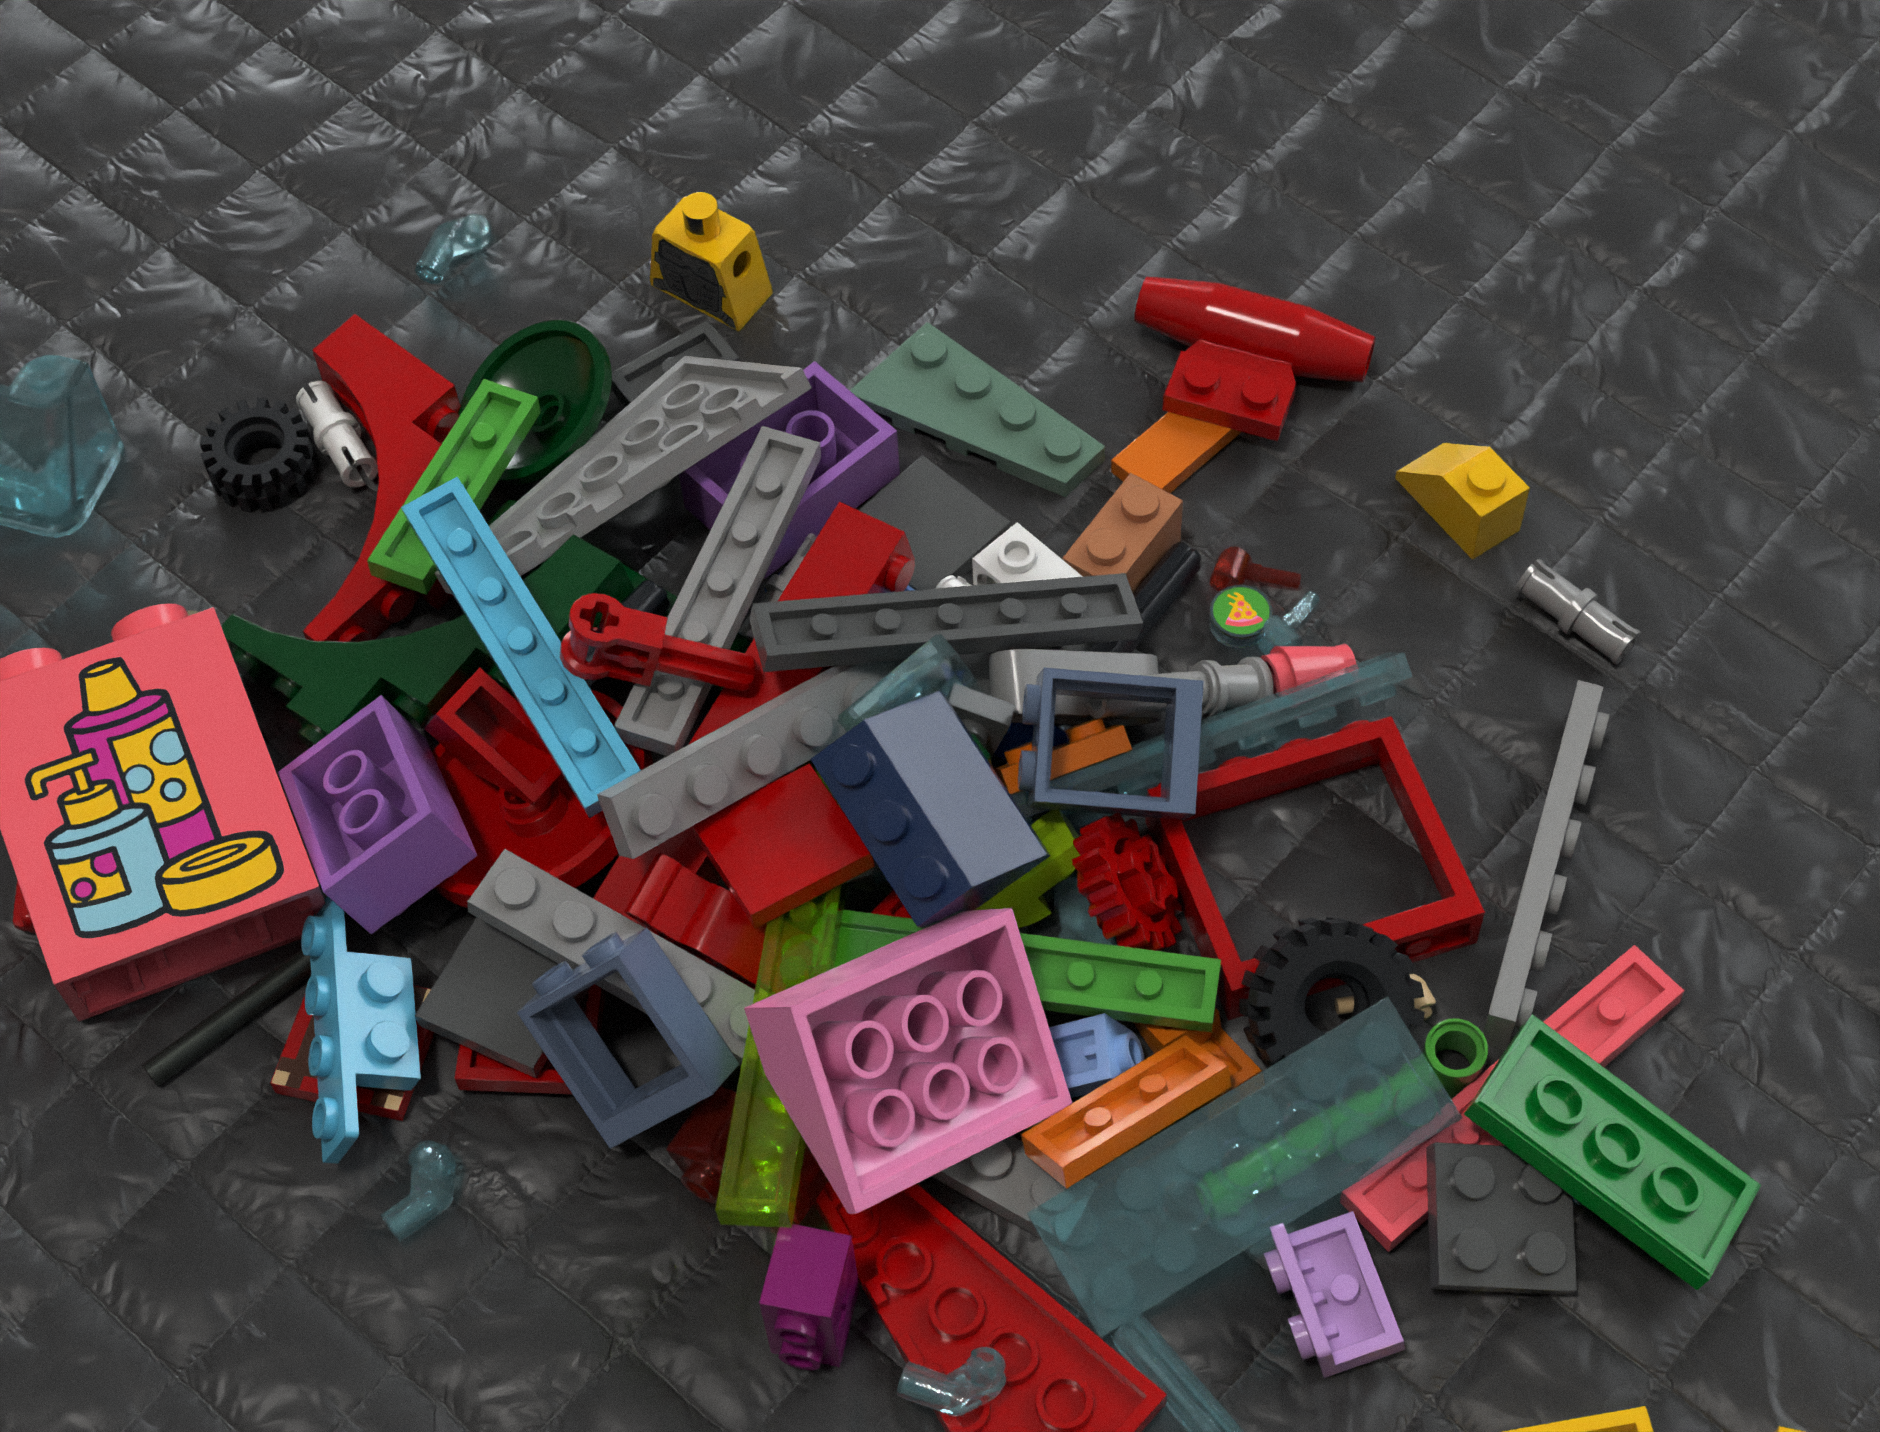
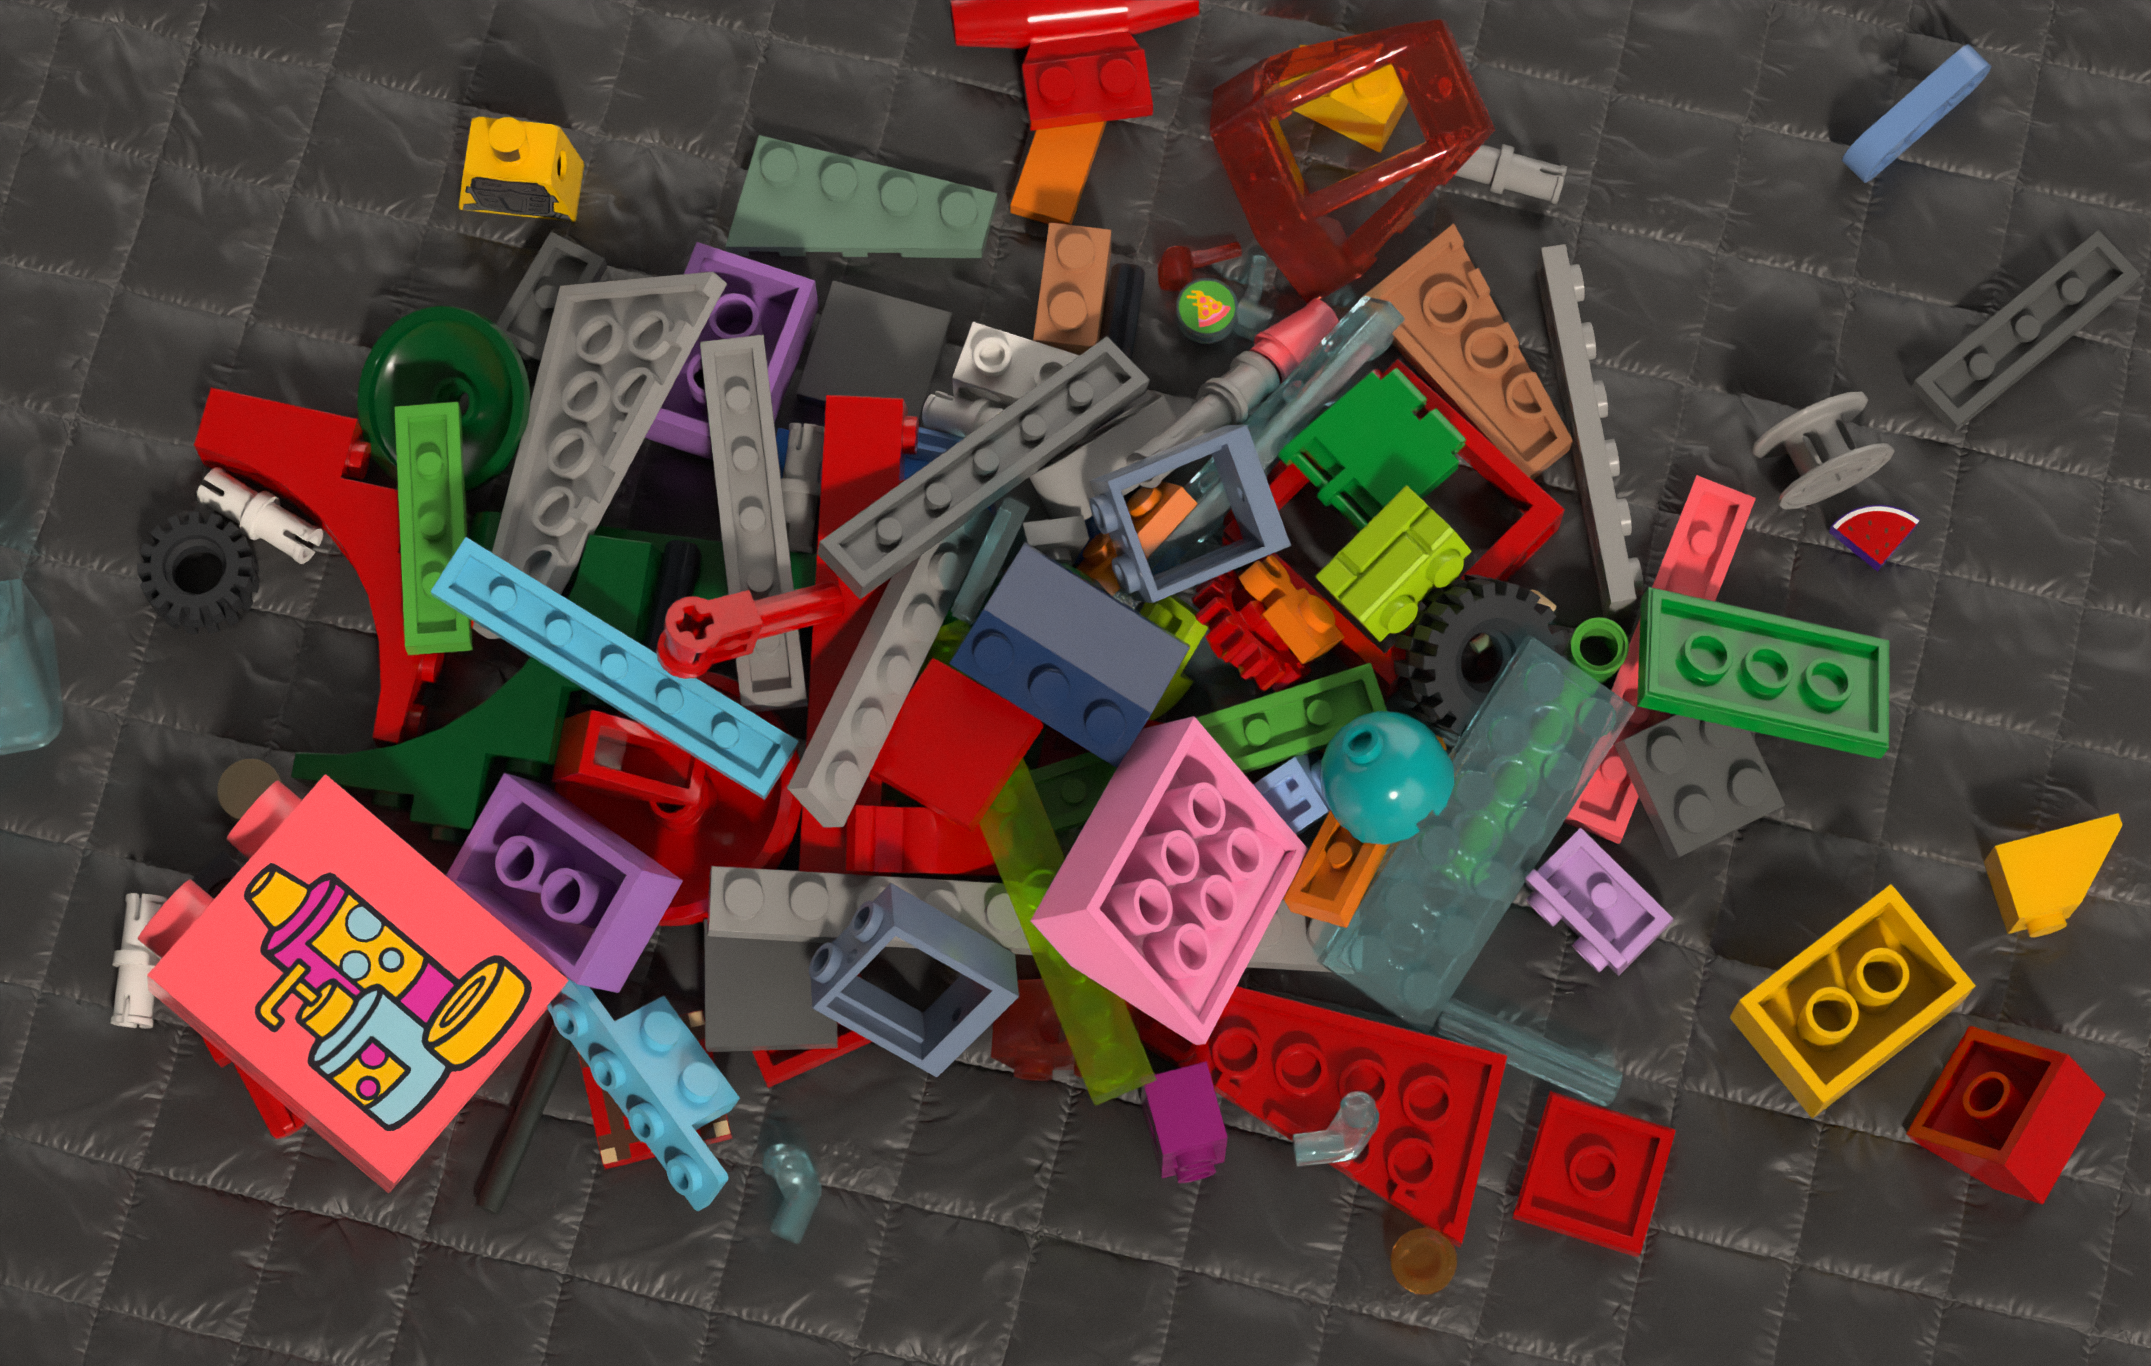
camera: 30 degrees left, 15 degrees up
(452, 242) = (239, 255): clear light blue arm -> none
(1171, 888) = (1295, 615): none -> orange plate
(1175, 1058) = (1385, 776): none -> teal cylinder
(1286, 875) = (1394, 564): none -> lime brick
(1327, 777) = (1375, 447): none -> green plate
(1347, 545) = (1266, 178): none -> clear red windscreen
(1466, 751) = (1471, 353): none -> nougat wing
(1788, 946) = (1822, 450): none -> light grey piece
(1794, 1079) = (1874, 532): none -> red tile

